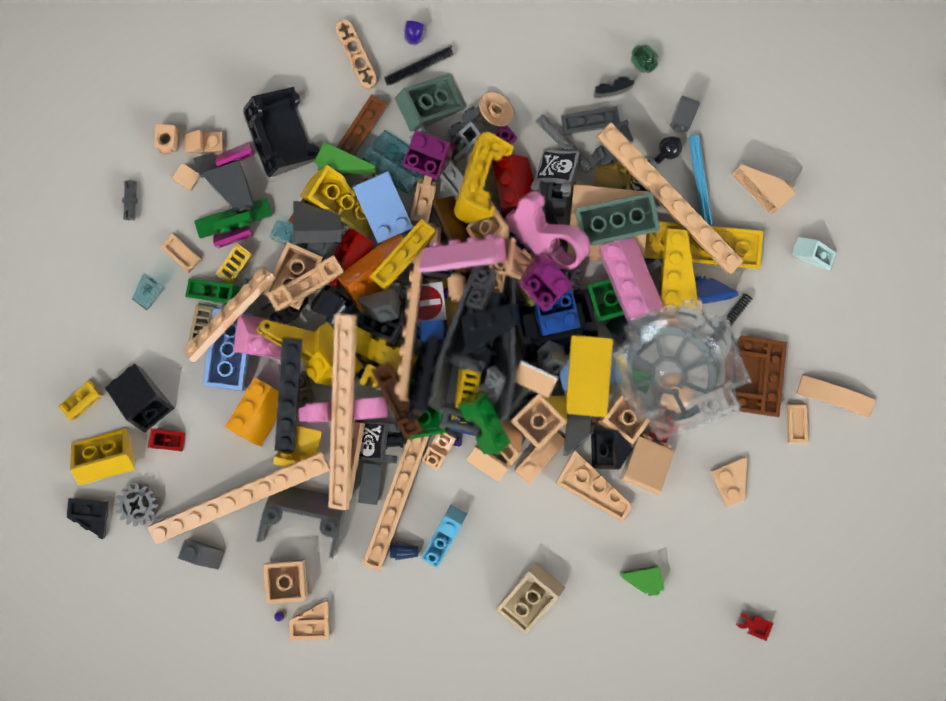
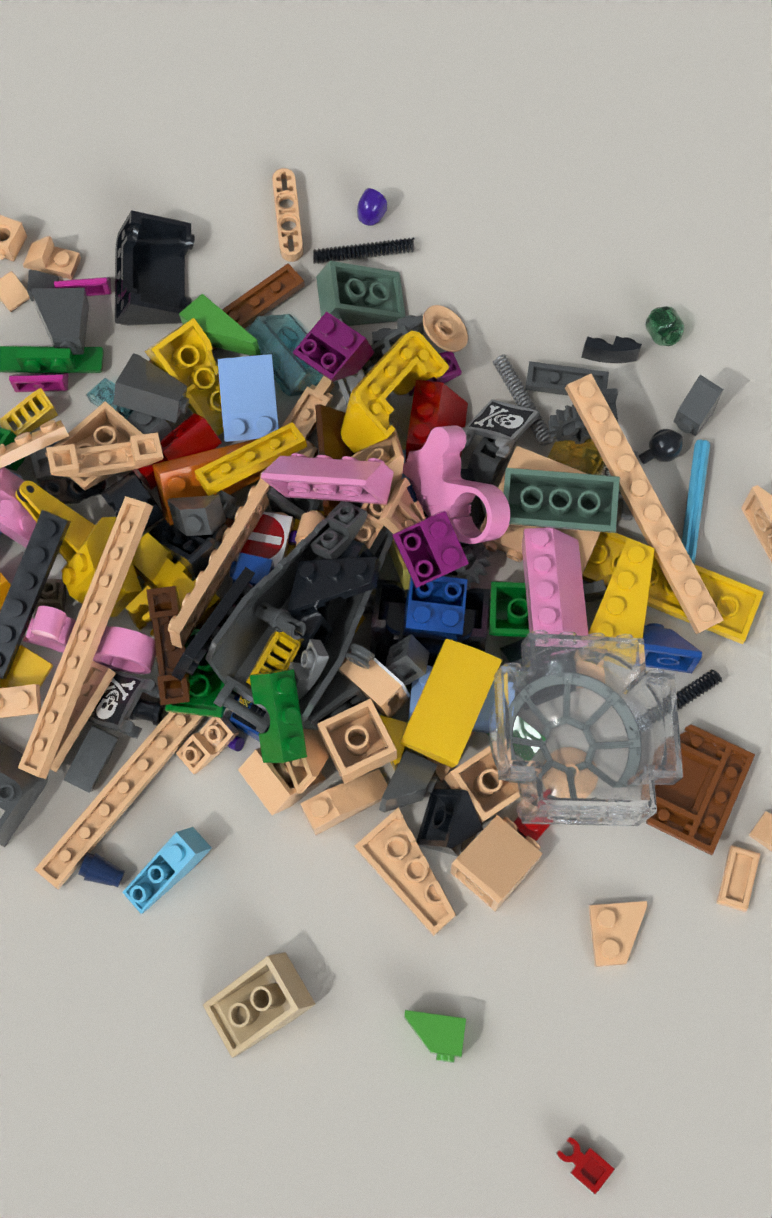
camera: 20 degrees right, 15 degrees down
(525, 370) = (360, 656): none -> dark grey bush

